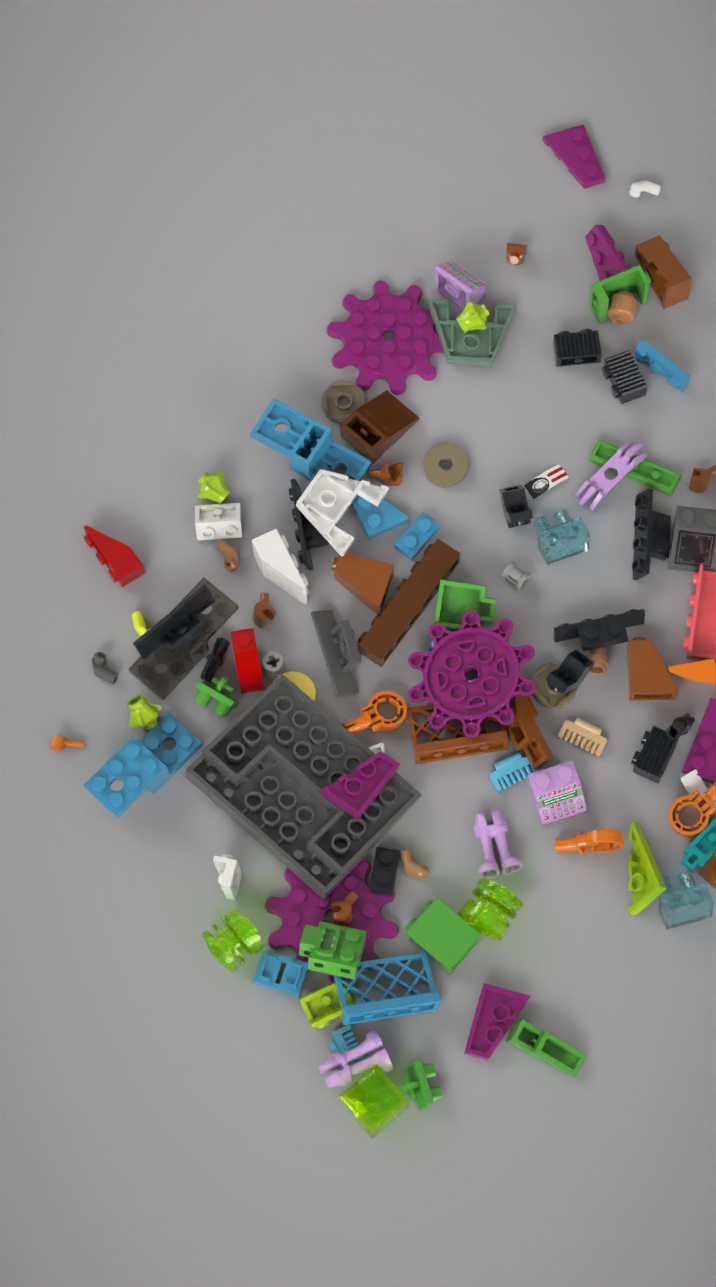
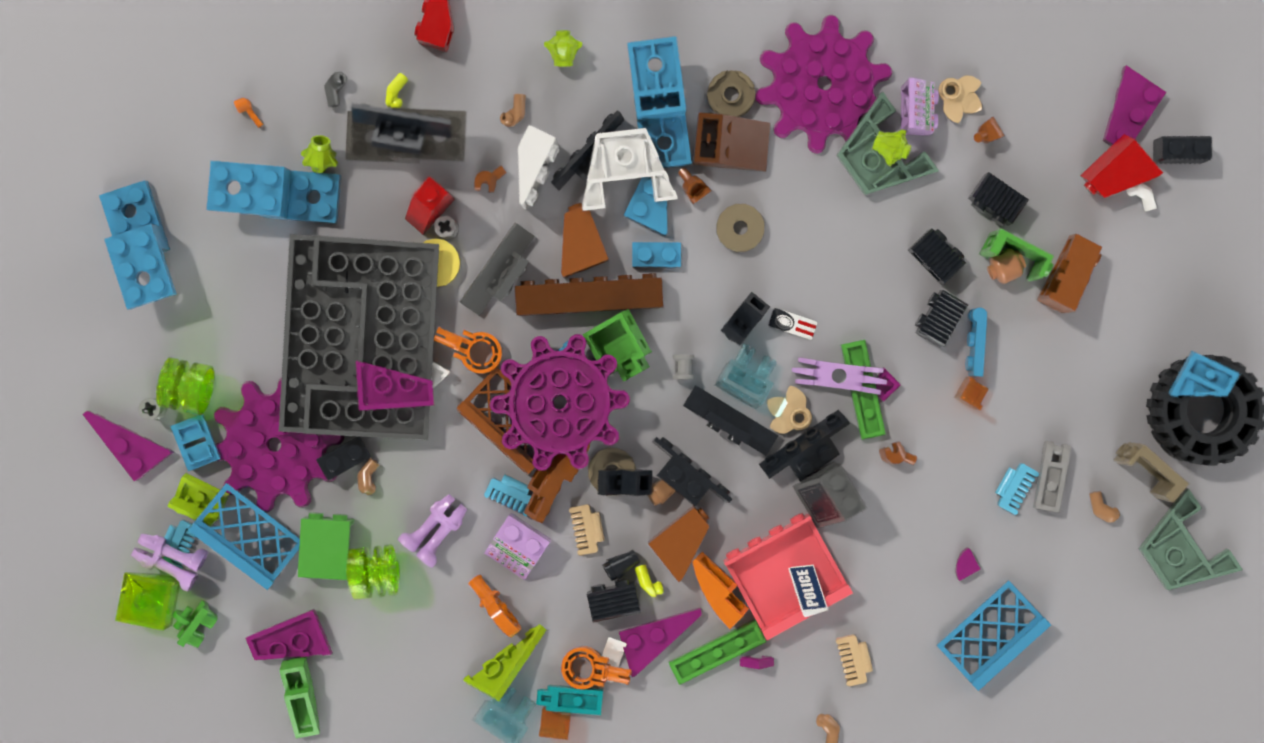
camera: 50 degrees right, 20 degrees up
(96, 895) = (137, 245): none -> dark azure bracket
(215, 659) = (413, 174): black axle -> none
(218, 521) = (537, 76): white bracket -> none
(224, 978) = (148, 403): none -> light grey bush
(225, 702) = (385, 200): bright green hips -> none
(229, 875) = (234, 343): white bracket -> none
(246, 1029) = (133, 451): none -> magenta wing
(335, 947) = (239, 473): bright green piece -> none
(342, 909) = (282, 455): dark orange piece -> none
(478, 255) = (963, 99): none -> tan plate
(569, 280) = (997, 199): none -> black brick
(583, 573) = (730, 420): none -> black bracket
(604, 254) = (1043, 214): magenta wing -> none
(607, 530) = (786, 409): none -> tan plate
(612, 187) = (1120, 168): none -> red slope
(631, 732) = (619, 565): none -> black cone
(632, 141) = (1182, 149): none -> black brick
(648, 448) = (889, 388): none -> magenta tile
(659, 721) = (645, 582): none -> neon yellow arm
(680, 726) = (651, 606): black axle -> none
(697, 396) = (971, 393): none -> clear orange panel

